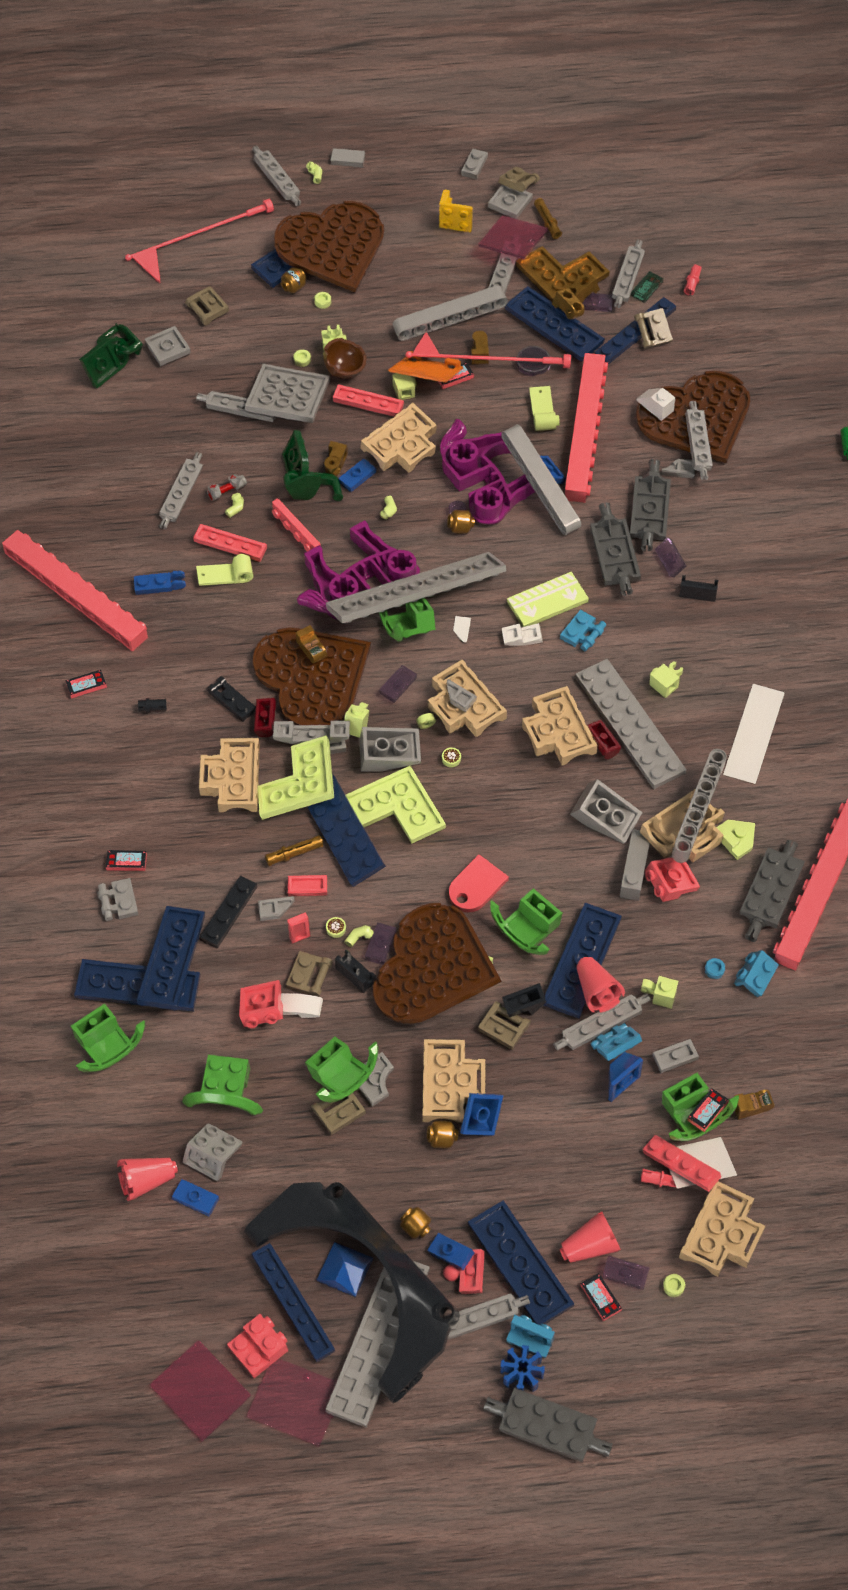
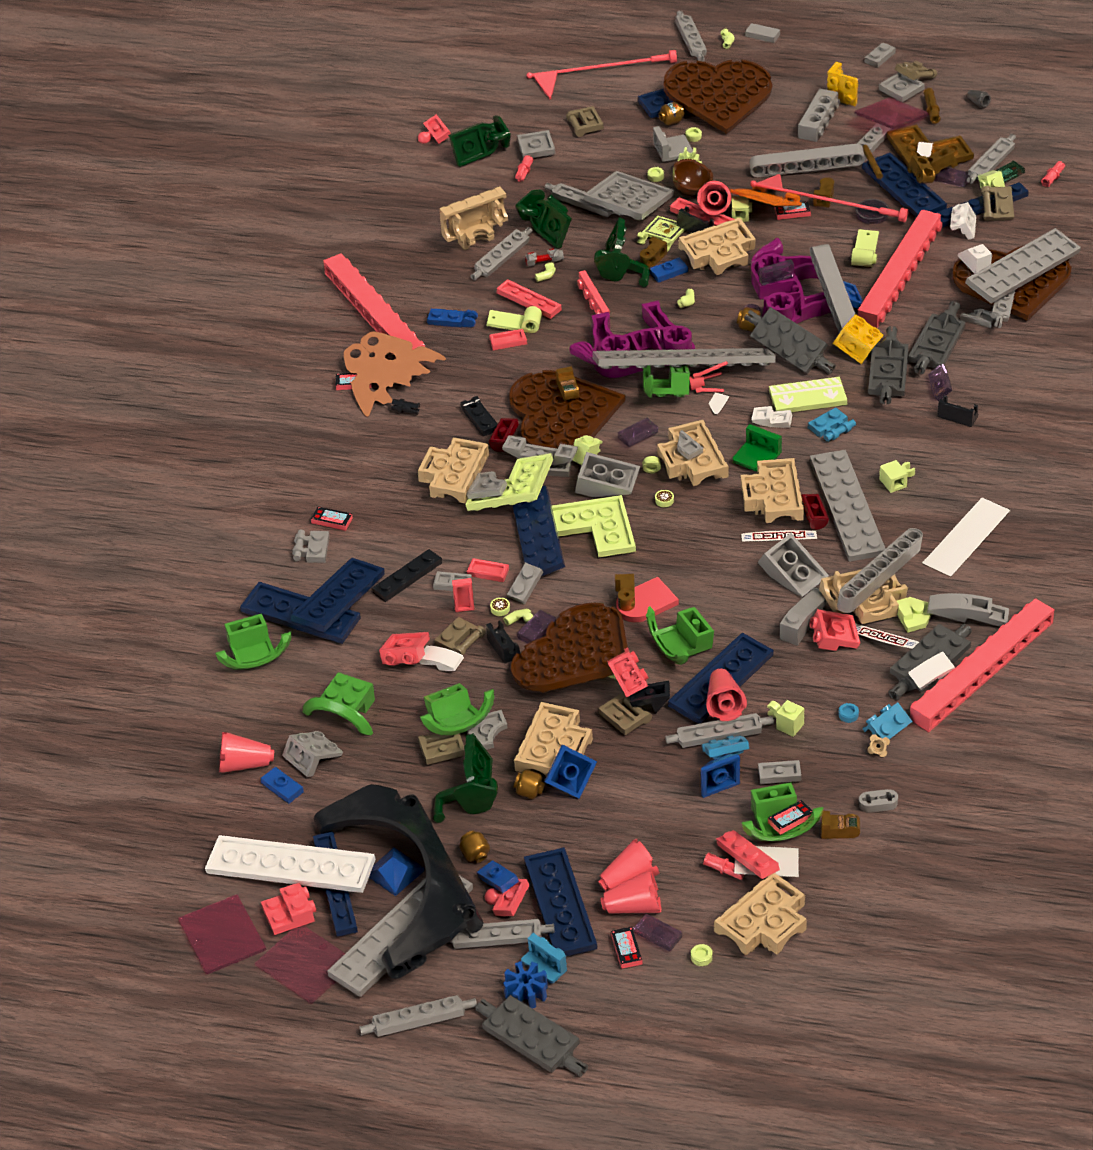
camera: 20 degrees right, 15 degrees down
(56, 347) = (436, 129): none -> coral plate
(114, 667) = (385, 371): none -> nougat piece
(144, 460) = (474, 217): none -> tan piece
(165, 378) = (524, 168): none -> coral axle
(214, 438) = (546, 216): none -> dark green plate
(225, 596) = (508, 339): none -> coral tile
(242, 1294) = (290, 863): none -> white plate
(274, 789) = (486, 486): none -> light grey tile
(286, 853) = (486, 540): pearl gold pin -> none
(307, 321) = (669, 147): none -> light grey bracket
(334, 426) = (663, 229): none -> yellowish green flag
(352, 895) = (525, 583): none -> light grey plate
(364, 415) = (691, 222): none -> black hinge
(380, 384) = (714, 197): none -> coral cone
(393, 1161) = (479, 791): none -> dark green plate
(429, 1433) = (418, 1015): none -> light grey plate
(437, 607) = (697, 380): none -> coral plant
(440, 252) = (818, 115): none -> light grey brick
(458, 882) = (626, 591): none -> pearl gold leg
(473, 463) = (776, 272): none -> clear purple plate
(500, 987) = (628, 673): none -> coral bracket
(511, 541) = (789, 341): none -> dark grey plate
(516, 302) = (872, 161): none -> pearl gold bar
(524, 679) = (759, 446): none -> green bracket
(560, 276) = (924, 149): none -> white sticker
(574, 1209) = (627, 865): none -> coral cone
(576, 774) = (778, 535): none -> sticker
(578, 524) = (858, 338): none -> yellow bracket
(591, 200) = (980, 98): none -> flat silver cone
(627, 355) = (965, 219): none -> white bracket
(638, 302) = (991, 179): none -> yellowish green brick
(708, 405) = (1023, 265): none -> light grey plate
(722, 873) = (885, 637): none -> sticker
(761, 1005) = (873, 745): none -> tan plate
(779, 1067) = (878, 801): none -> light grey beam
(783, 907) = (931, 669): none -> white slope
(788, 821) = (965, 606): none -> light grey slope

